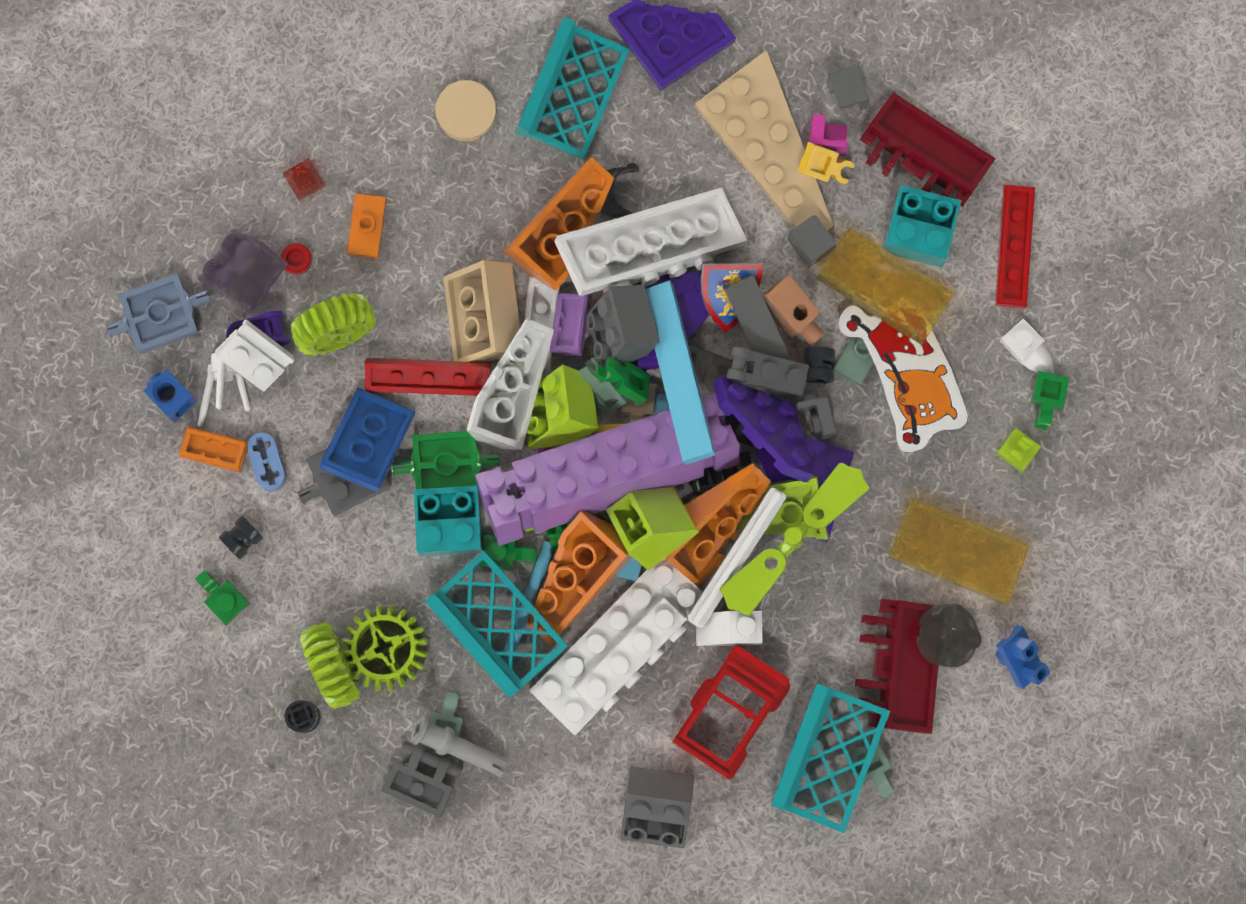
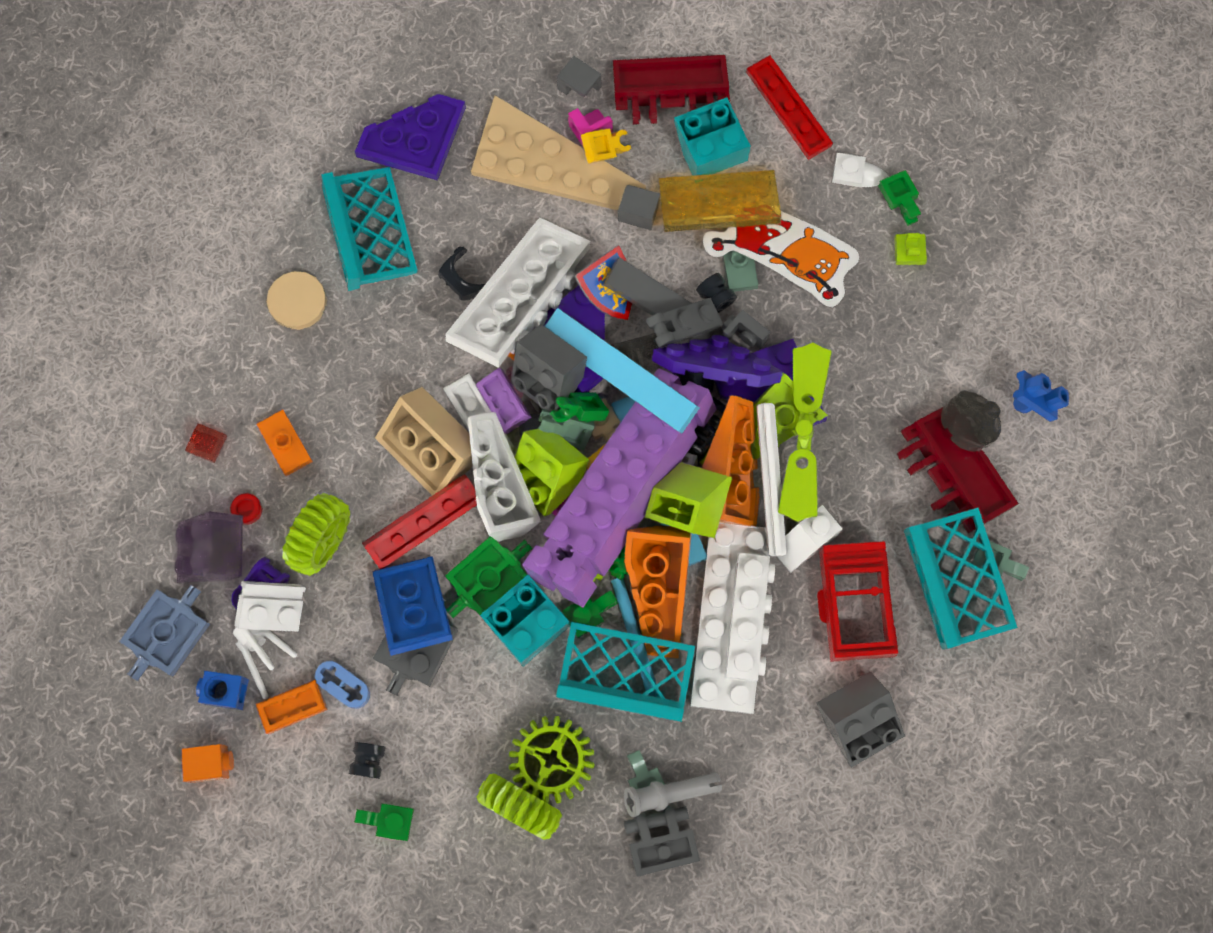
camera: 35 degrees left, 5 degrees down
(116, 444) = (206, 763): none -> orange brick
(308, 718) = (531, 867): black wheel -> none
(569, 210) = (439, 305): orange wedge -> none
(785, 298) = (666, 264): nougat torso -> none
(959, 551) = (928, 354): clear yellow plate -> none

